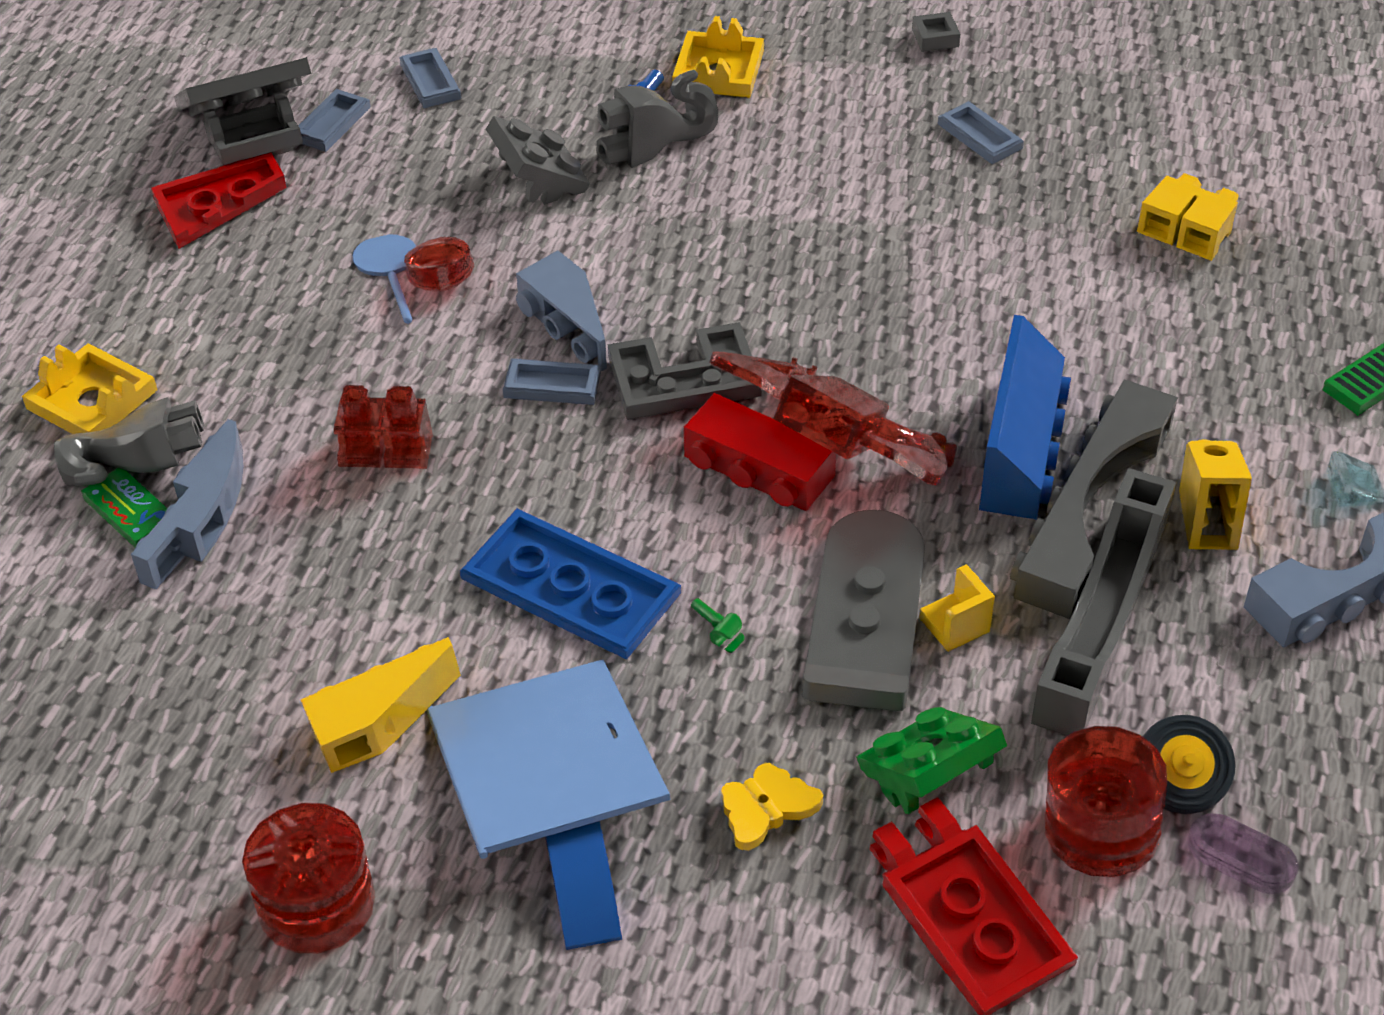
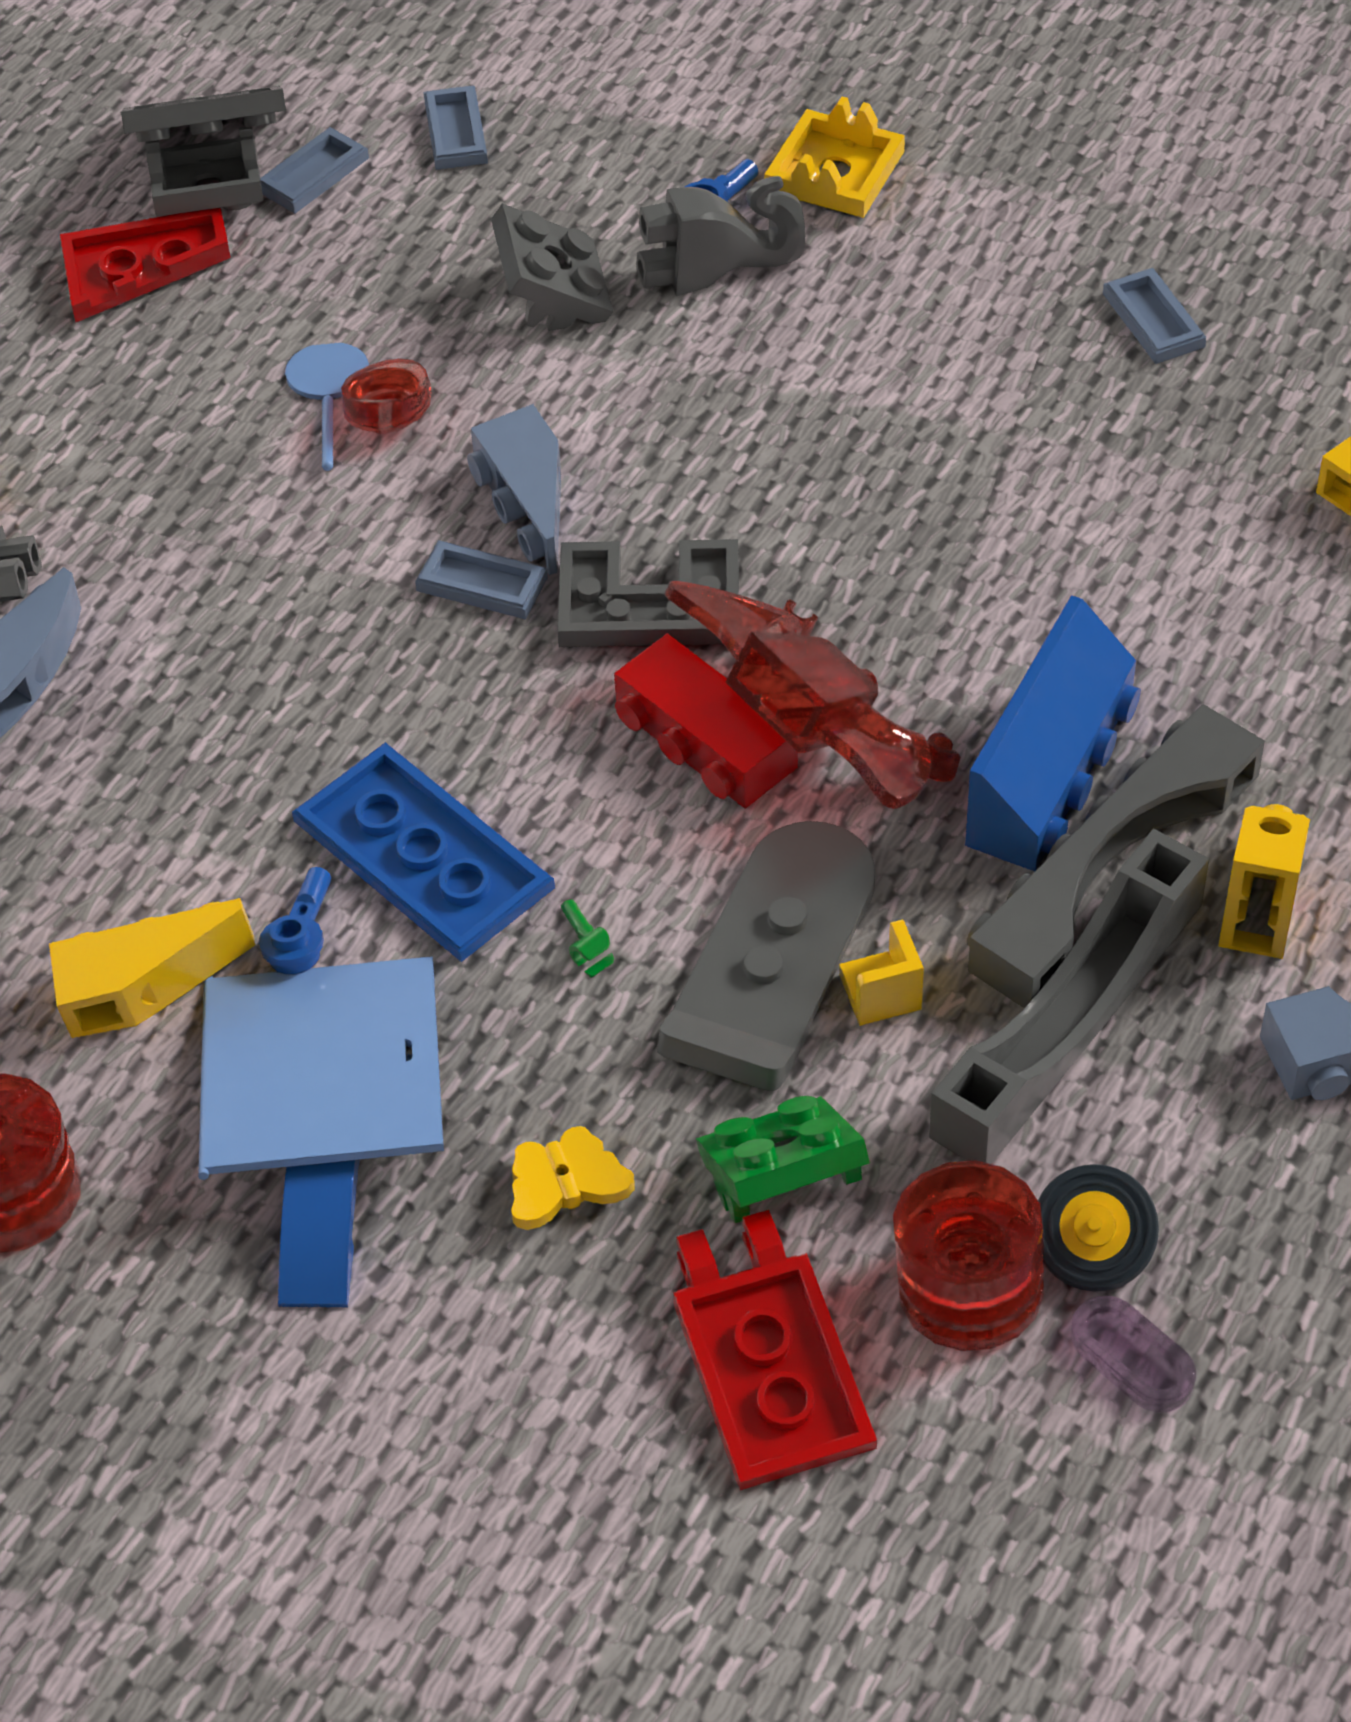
camera: 15 degrees right, 5 degrees up
(371, 423) = (248, 612): clear red hips -> none
(492, 665) = (295, 940): none -> blue plate
(936, 31) = (1144, 157): dark grey plate -> none

